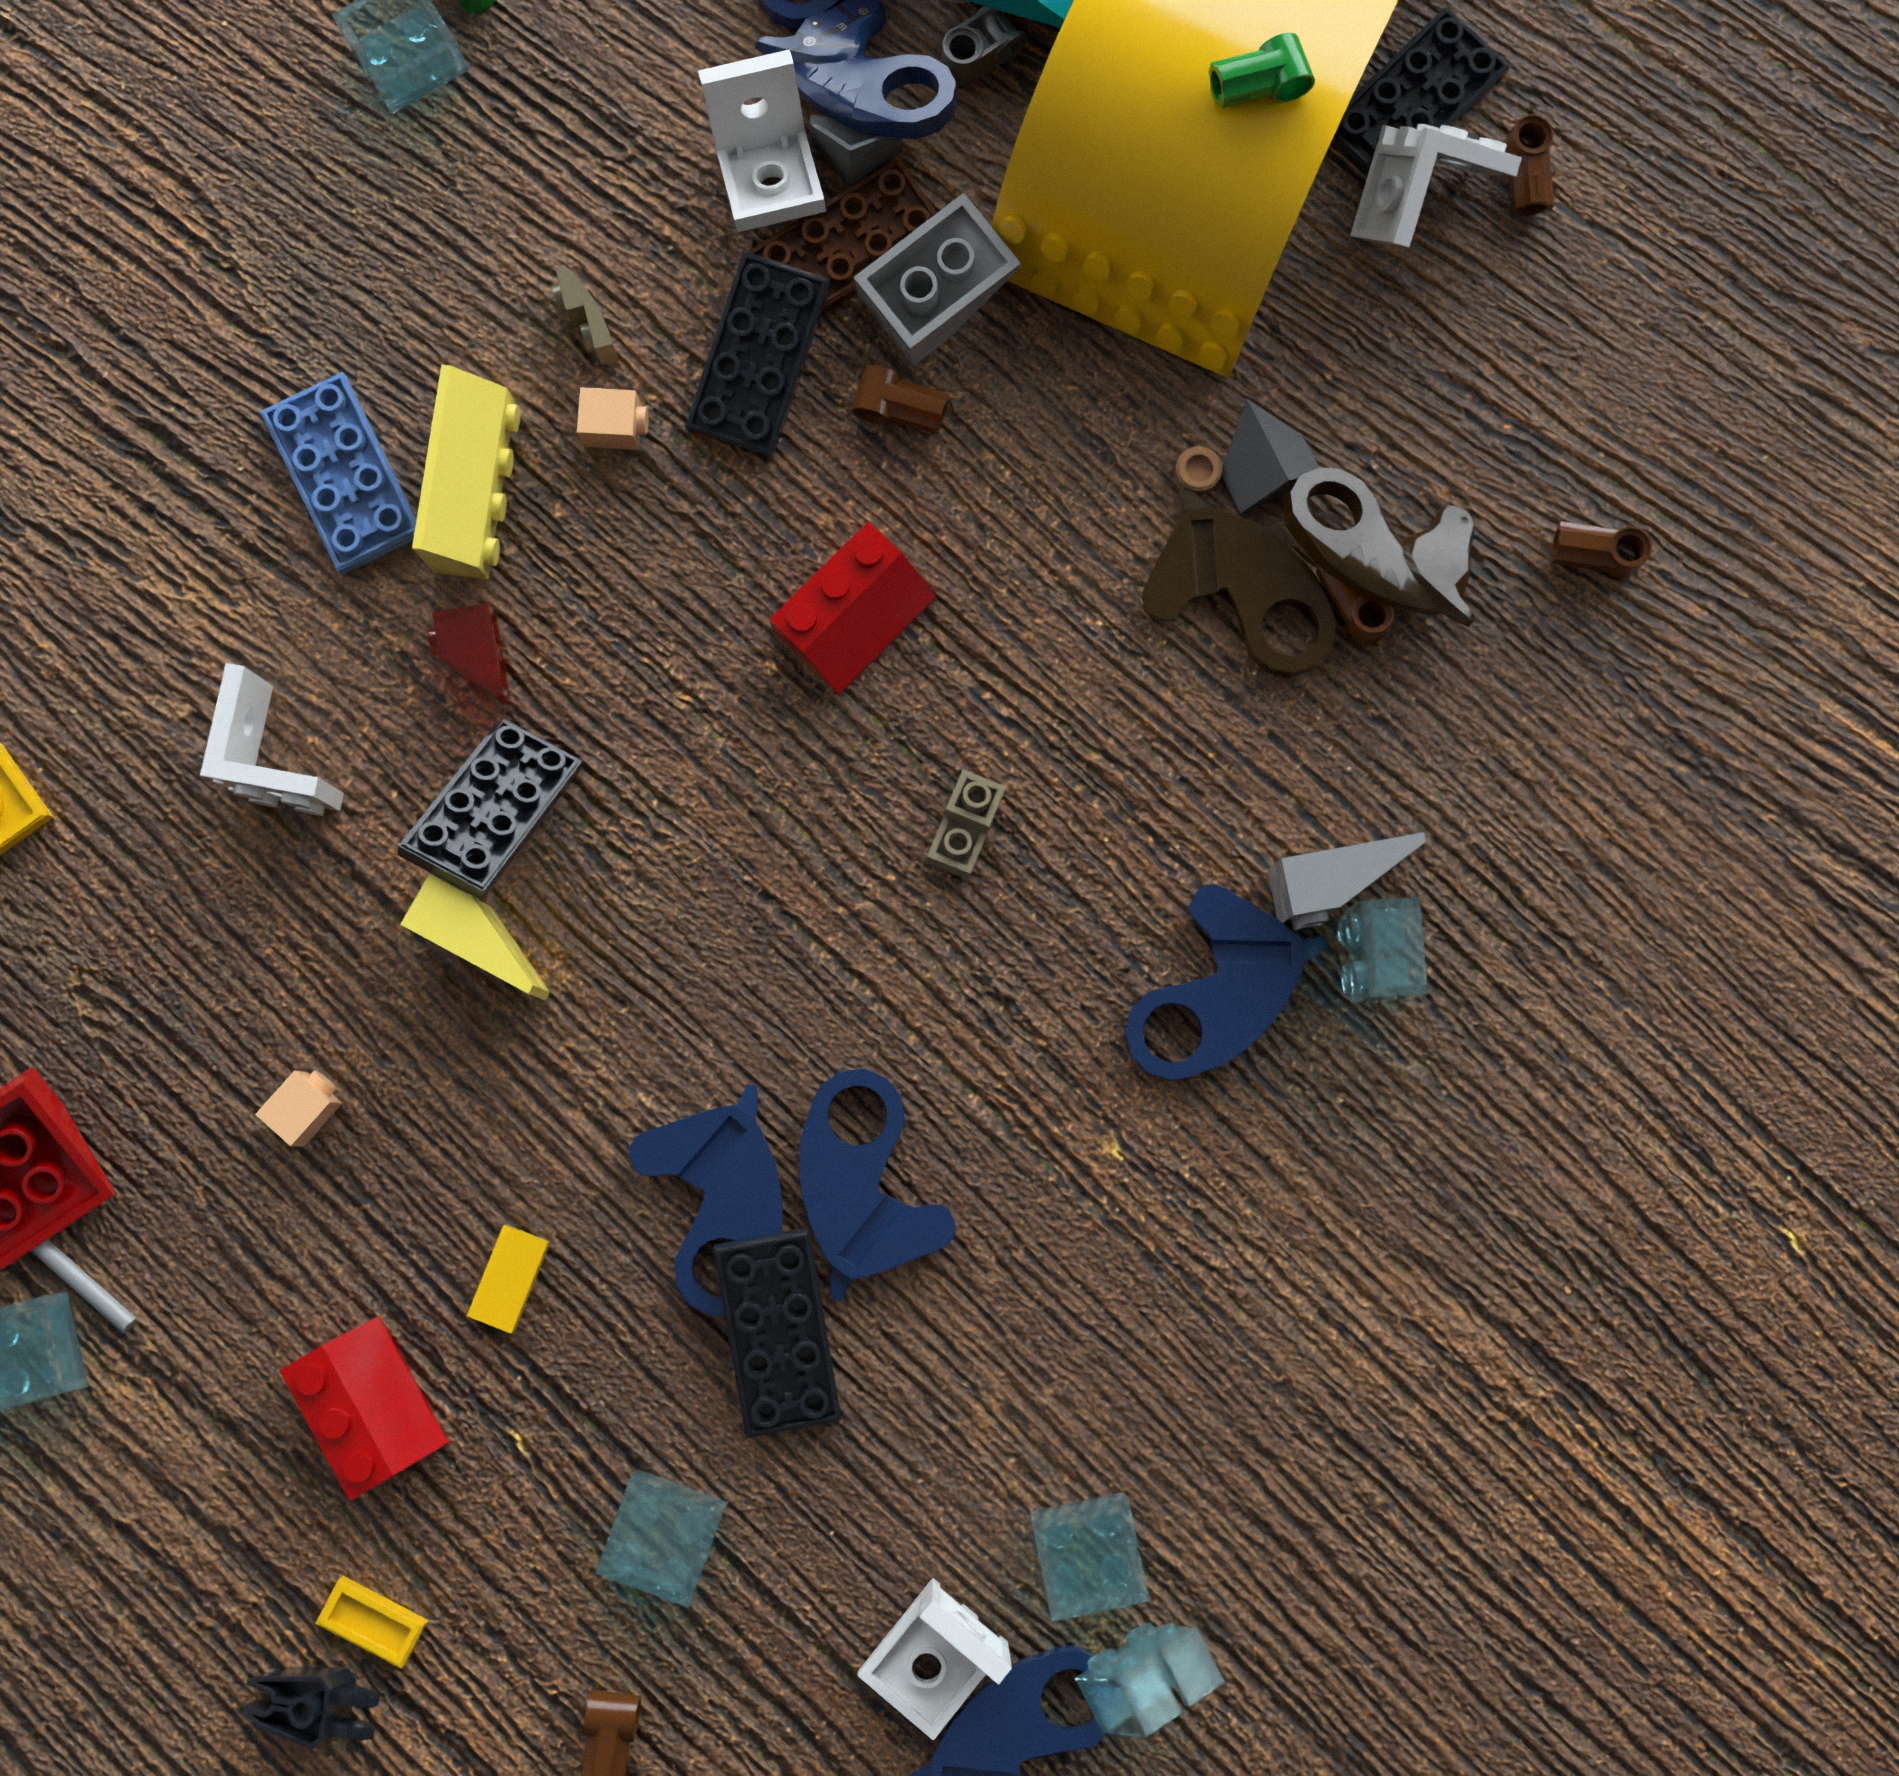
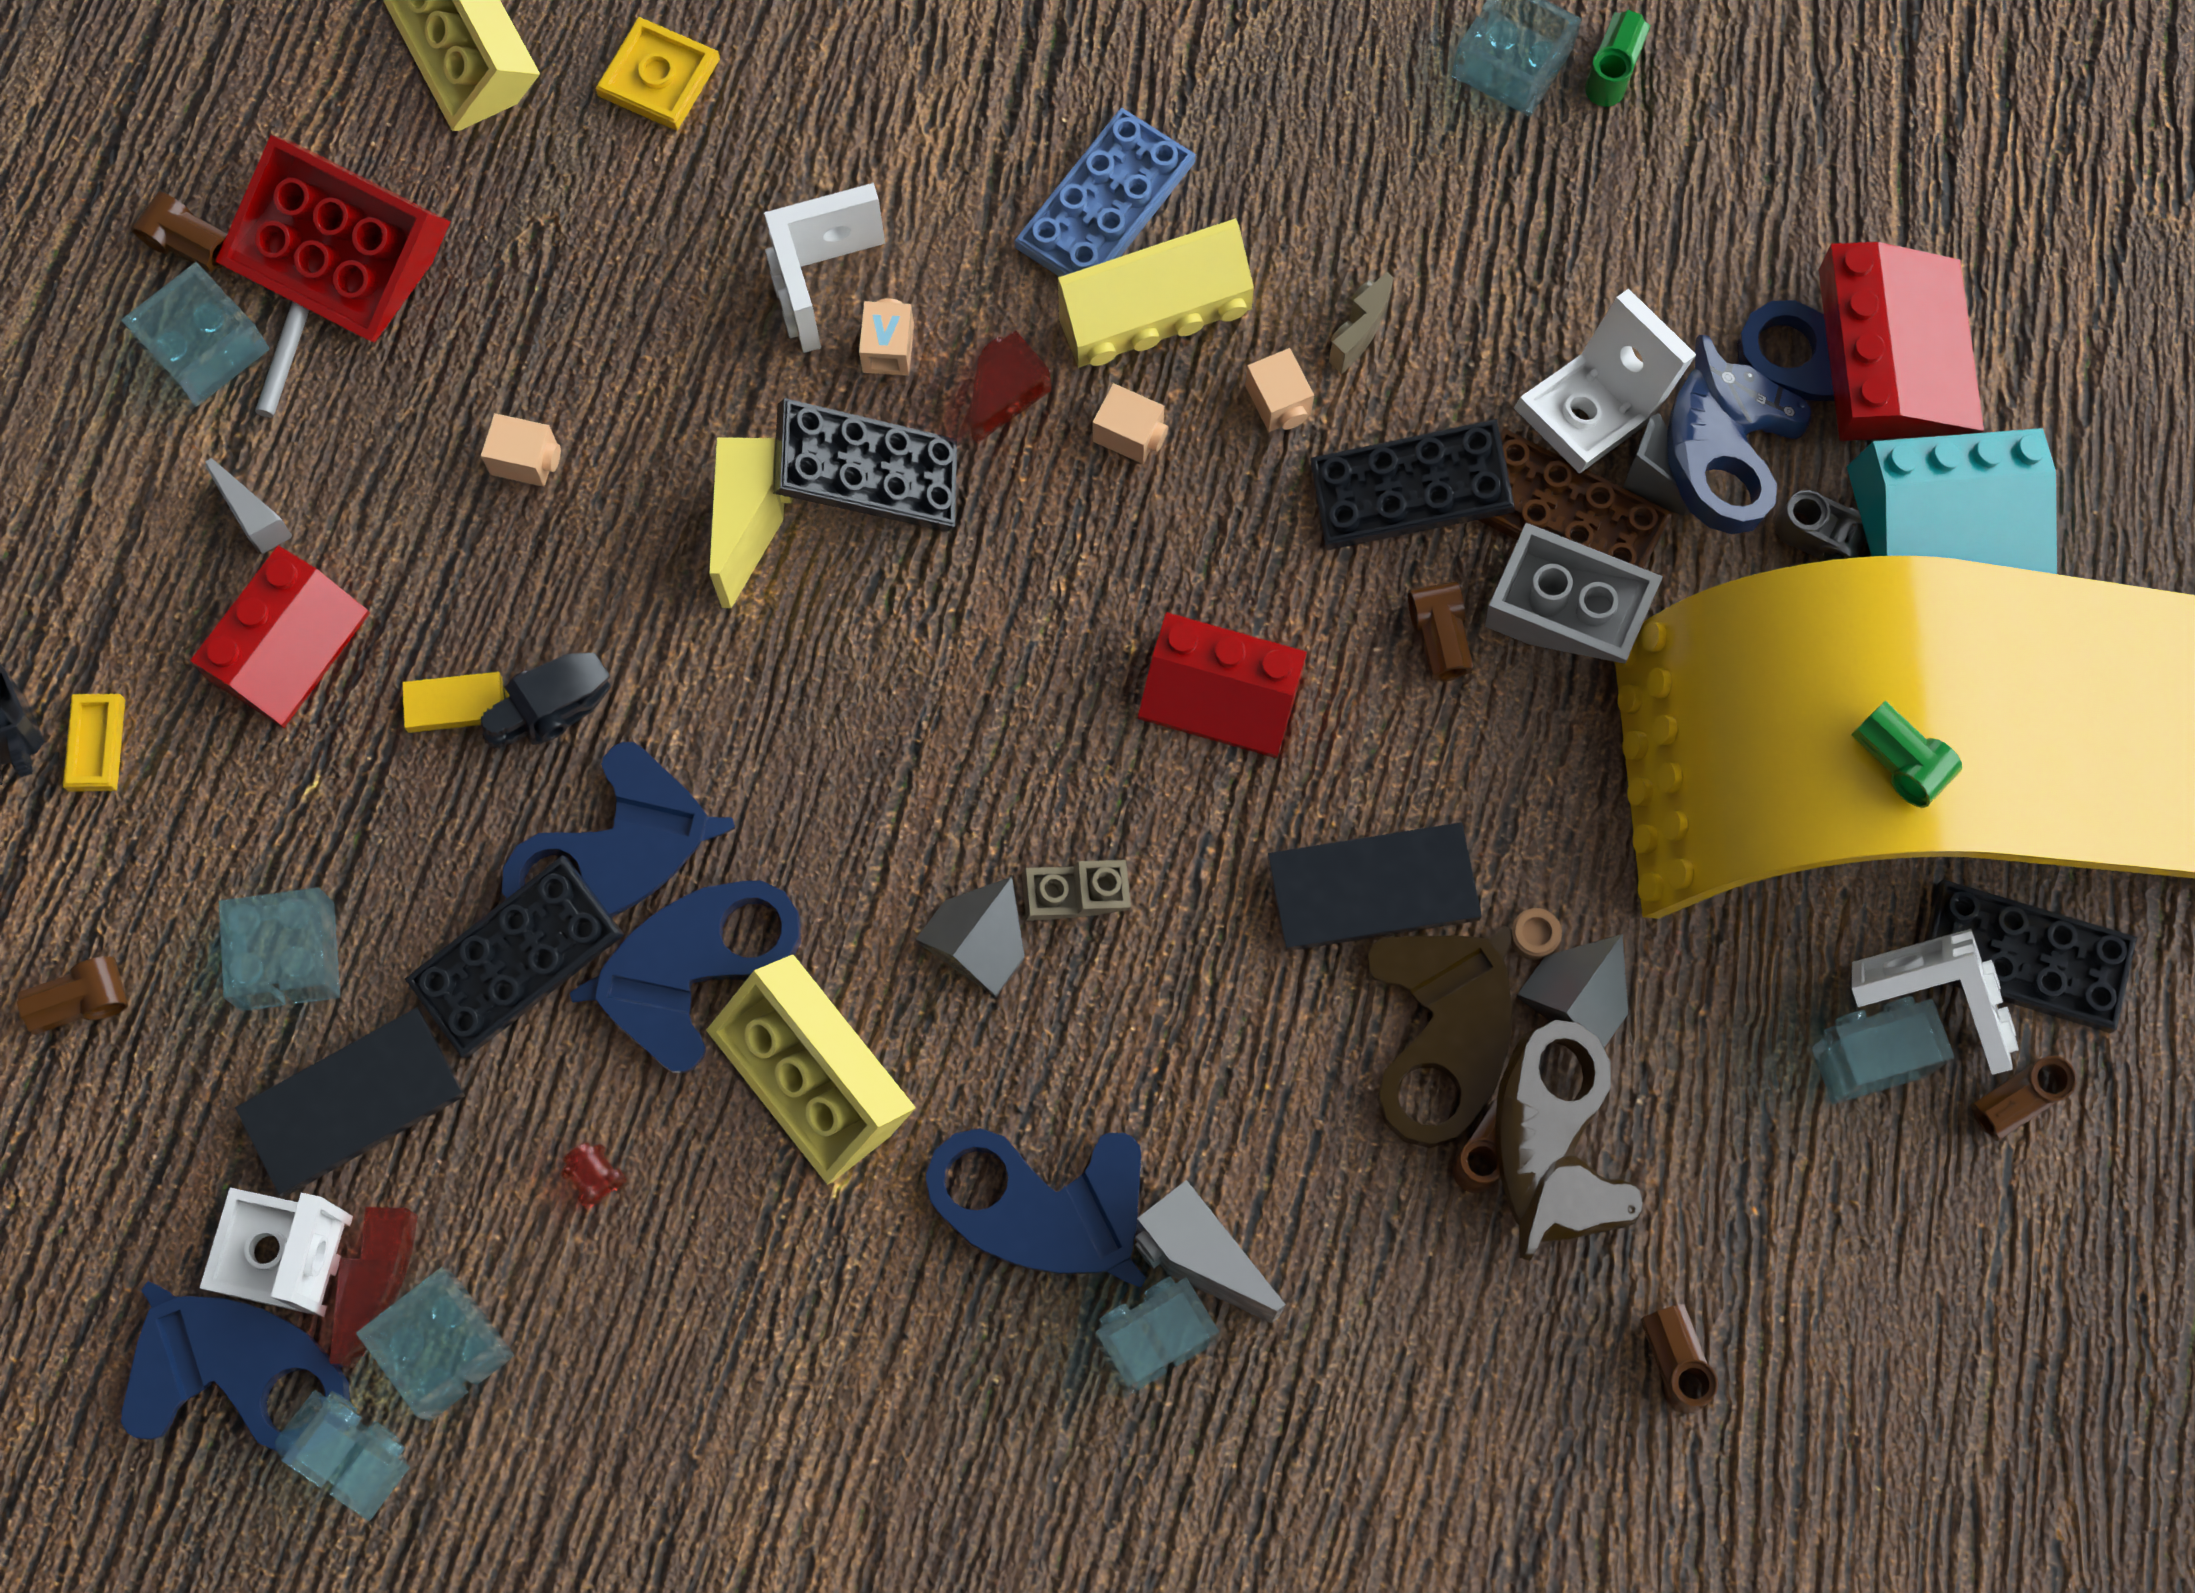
camera: 65 degrees right, 10 degrees down
(235, 1380) = (257, 520): none -> light grey slope
(370, 729) = (886, 337): none -> light nougat brick
(555, 1195) = (546, 700): none -> black hinge
(571, 561) = (1129, 424): none -> light nougat brick
(832, 1536) = (349, 1102): none -> black tile
(962, 926) = (978, 935): none -> slope
(1002, 1587) = (373, 1281): none -> clear red slope
(1003, 1354) = (591, 1173): none -> clear red brick
(1007, 1124) = (809, 1067): none -> light yellow slope
(1093, 578) = (1374, 886): none -> black tile
(1445, 252) = (1882, 1050): none -> clear light blue piece

